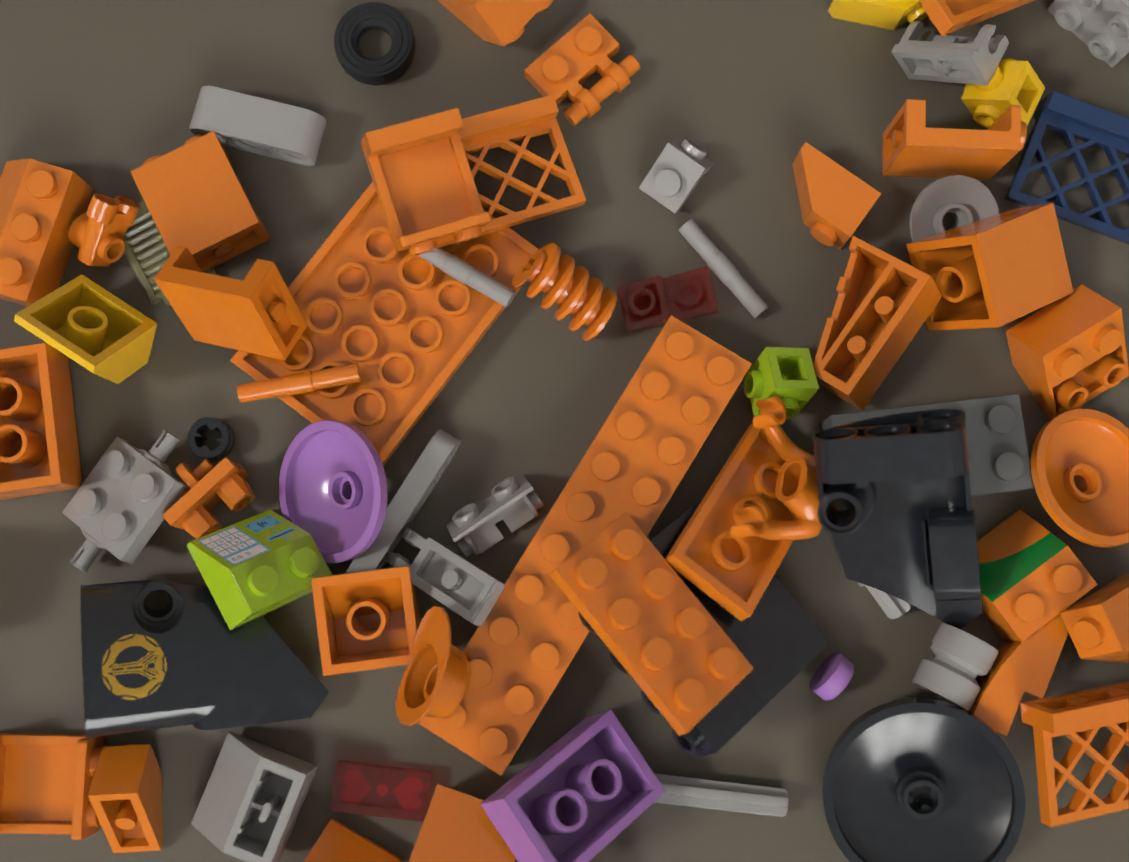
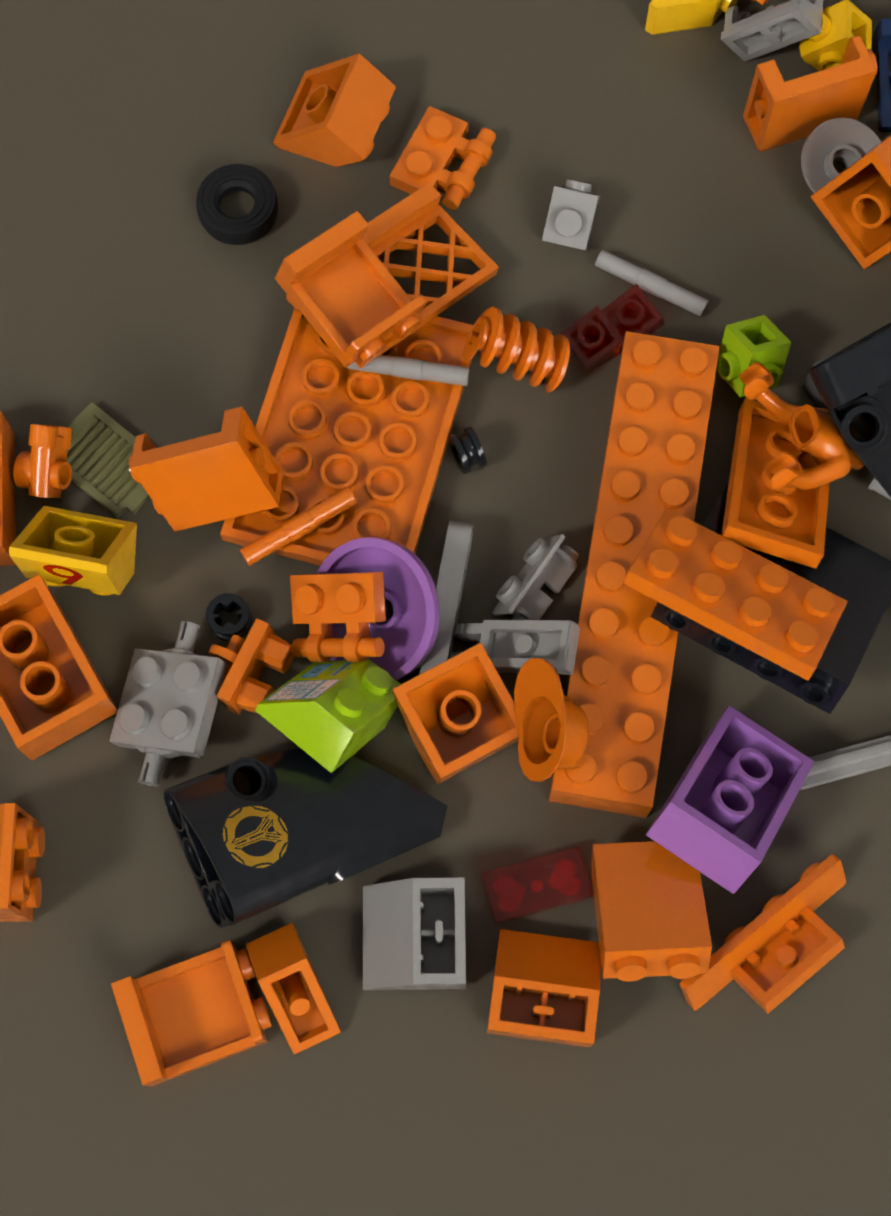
camera: 20 degrees left, 10 degrees down
(200, 202) = (132, 393): orange panel -> none
(259, 125) = (157, 314): light grey beam -> none
(303, 468) = (338, 598): none -> orange plate
(484, 367) = (467, 450): none -> black bush
(830, 197) = (721, 182): orange slope -> none
(872, 322) = (812, 272): orange wedge -> none

